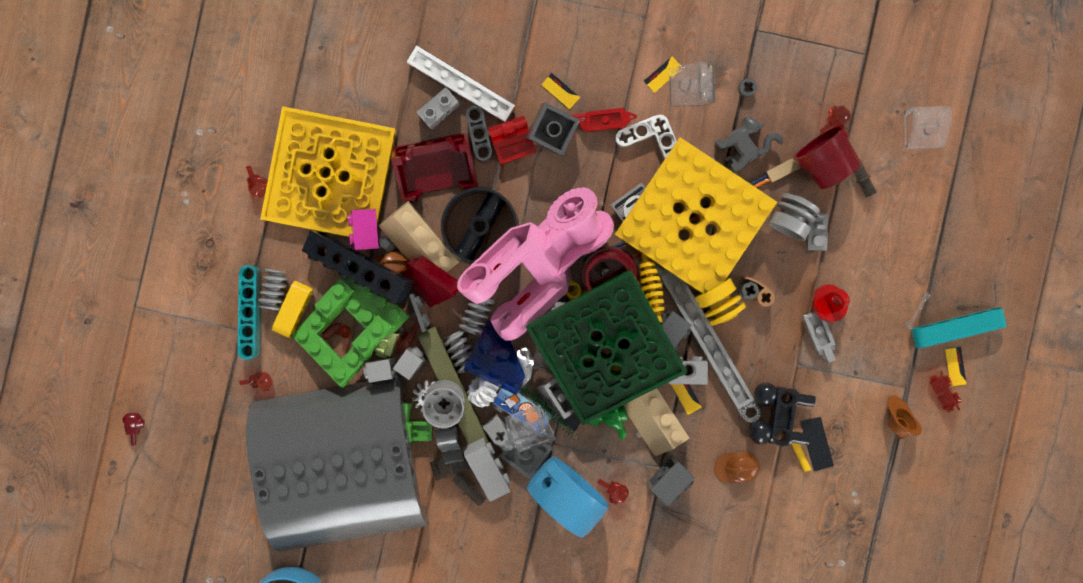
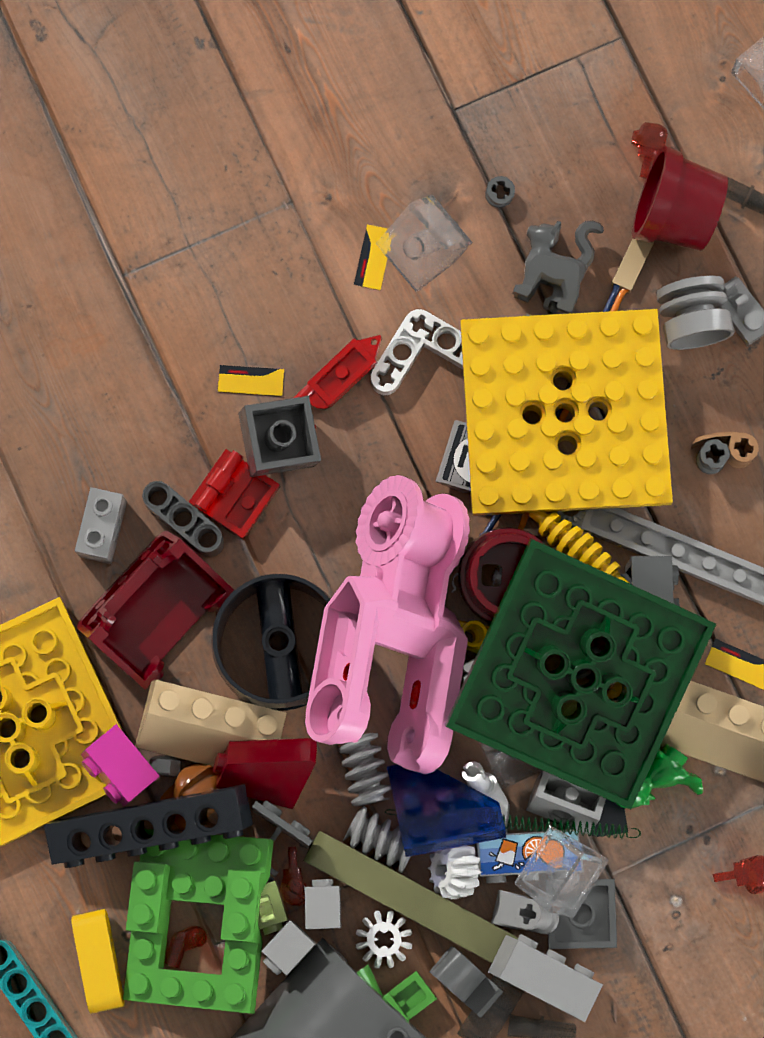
camera: 35 degrees left, 10 degrees down
(273, 289) = (48, 951): light grey piece -> none
(441, 414) = (434, 925): light grey wheel -> none
(460, 84) = (106, 470): white plate -> none
(567, 497) = (687, 923): dark azure cylinder -> none
(698, 373) = (734, 620): light grey brick -> none
(720, 303) = (687, 499): yellow wheel -> none

